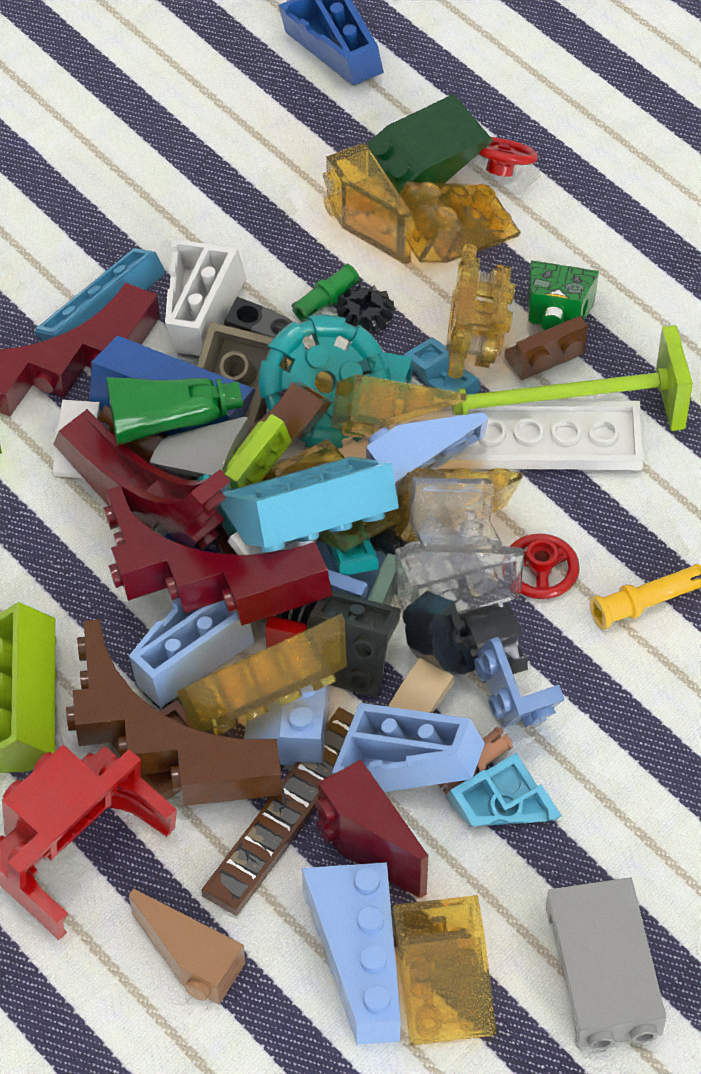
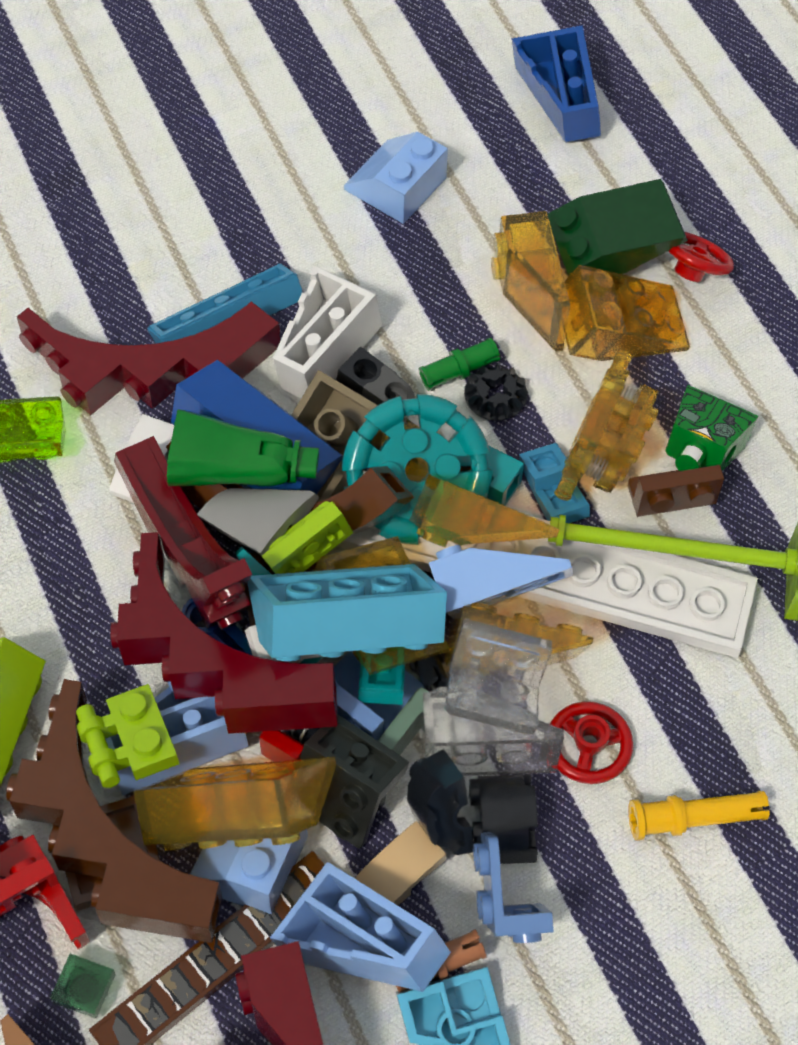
camera: 15 degrees right, 5 degrees up
(165, 640) = (141, 731): none -> lime plate
(184, 858) = (83, 986): none -> clear green plate
(216, 146) = (401, 175): none -> light blue slope

